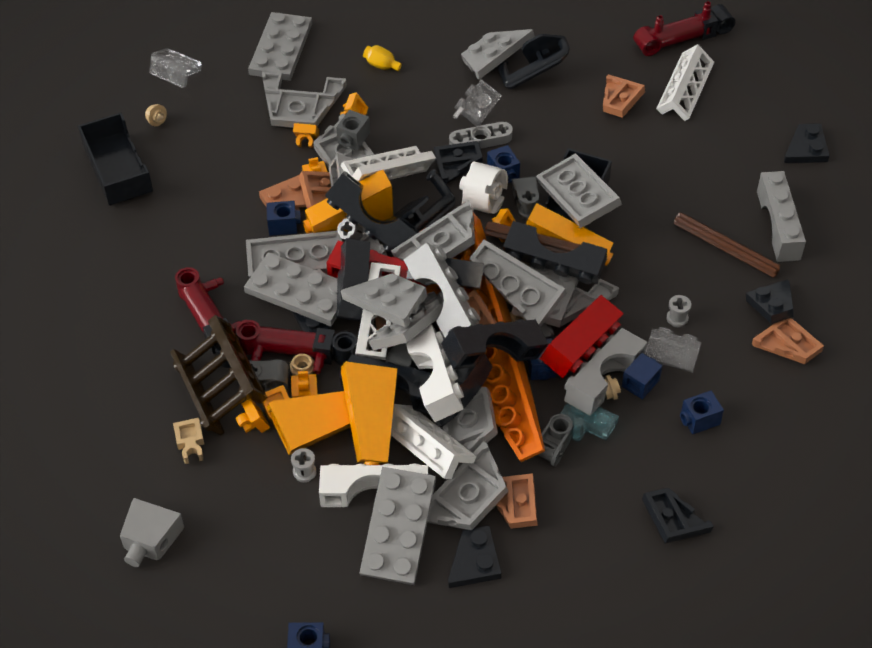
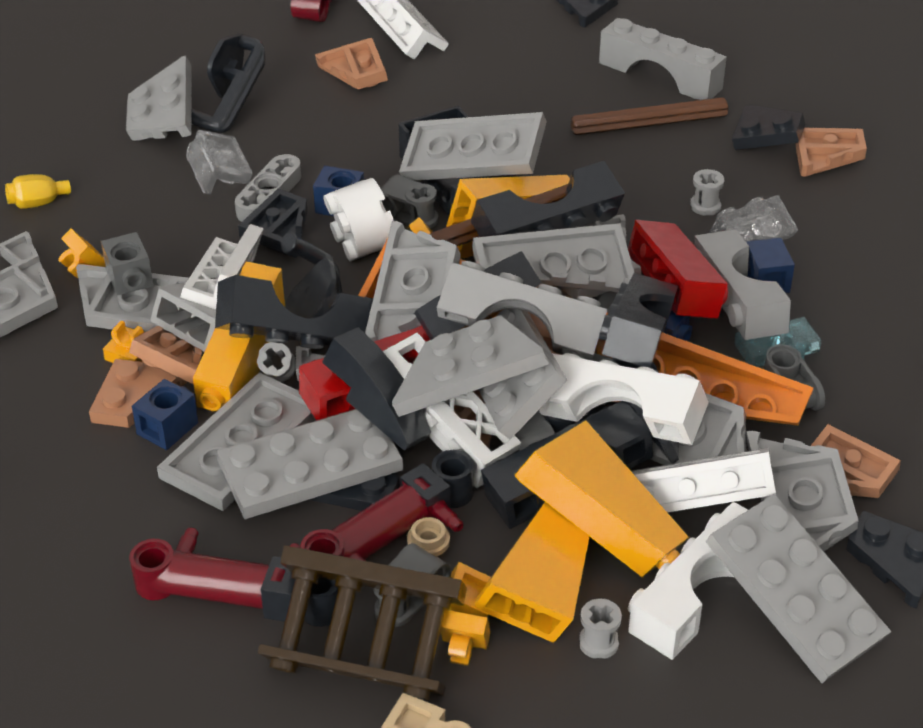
camera: 50 degrees left, 10 degrees down
(303, 384) = (467, 551): light orange tile -> none
(305, 131) = (58, 311): light orange tile -> none
(707, 405) = (863, 254): dark blue brick -> none

